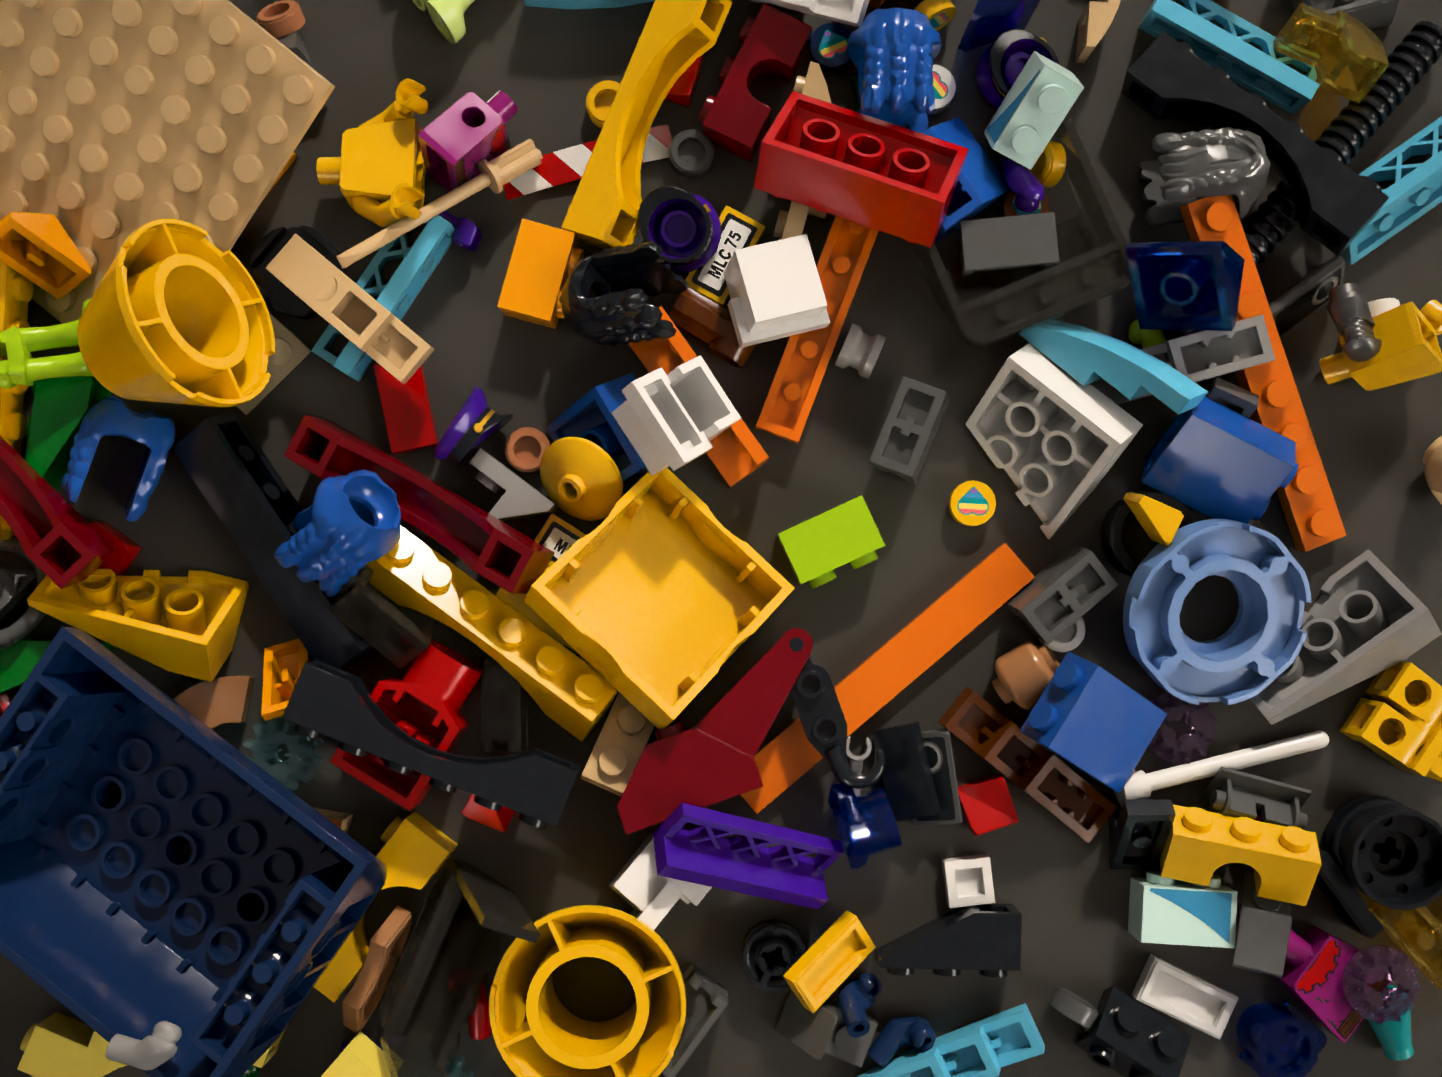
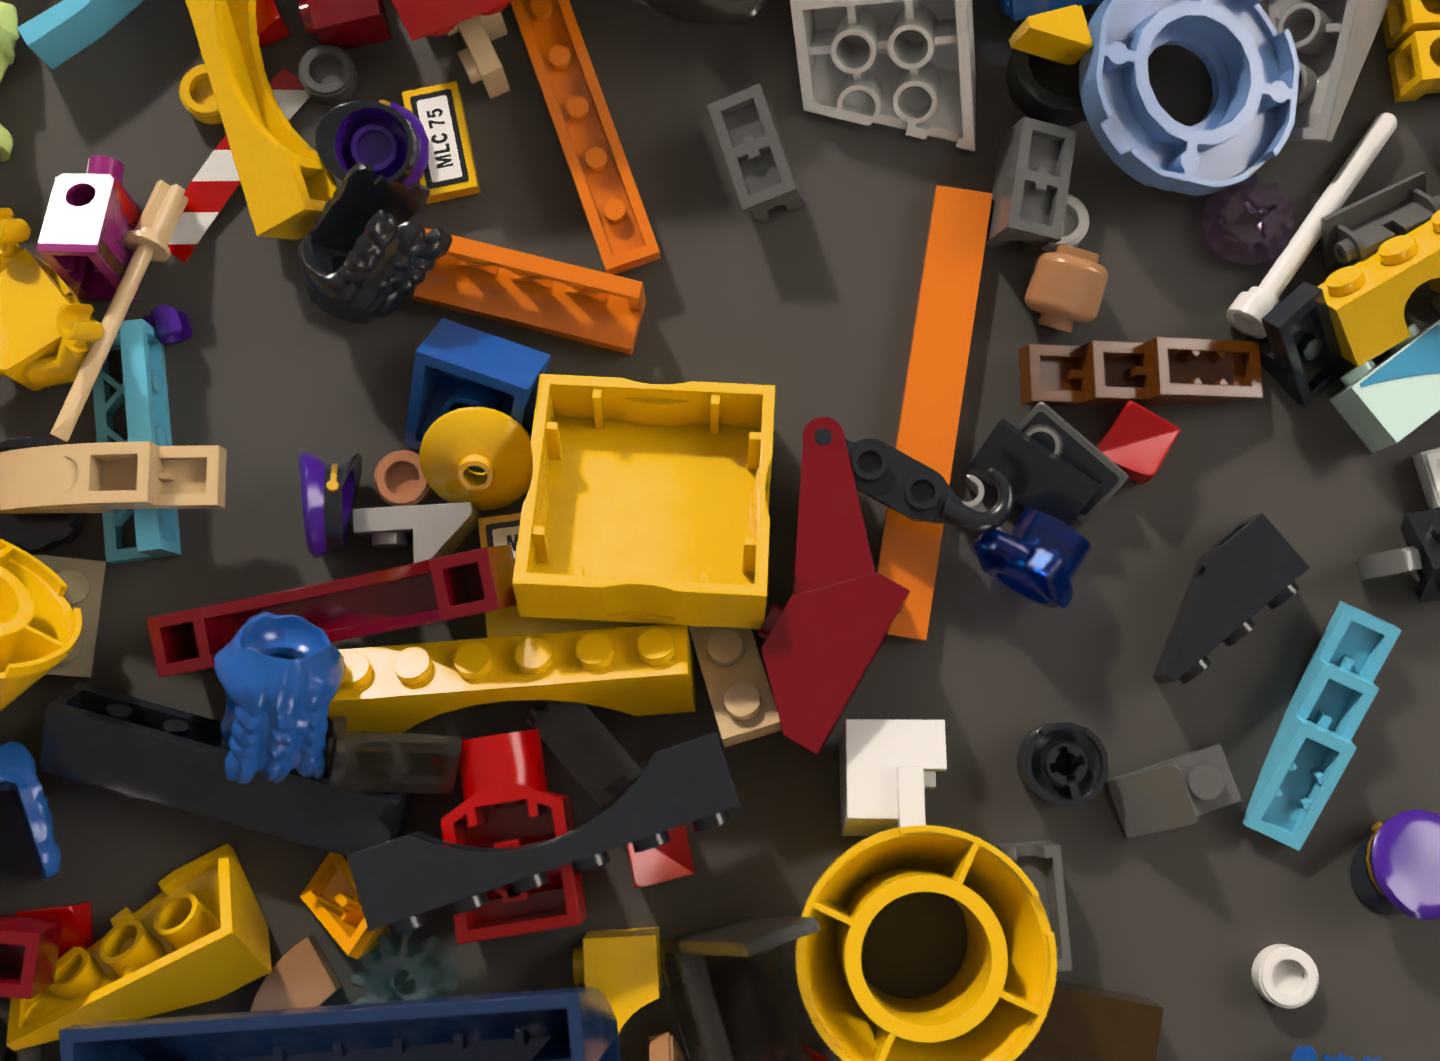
camera: 40 degrees left, 5 degrees down
(406, 411) = (249, 540): red tile -> none
(538, 273) = (273, 301): light orange brick -> none
(674, 414) = (515, 313): white plate -> none
(710, 325) = (503, 209): reddish brown piece -> none
(743, 862) = (949, 692): dark purple fence -> none
(775, 291) = (515, 121): white plate -> none
(829, 961) = (1121, 720): yellow tile -> none
(831, 541) = (771, 318): lime brick -> none
(855, 1000) = (1179, 738): dark blue arm -> none
(860, 351) = (646, 120): light grey wheel -> none
(901, 1033) = (1249, 733): dark blue arm -> none
(968, 880) = (1182, 532): white tile -> none
(972, 503) = (873, 176): yellow tile -> none
(1093, 721) = (1167, 273): blue brick -> none

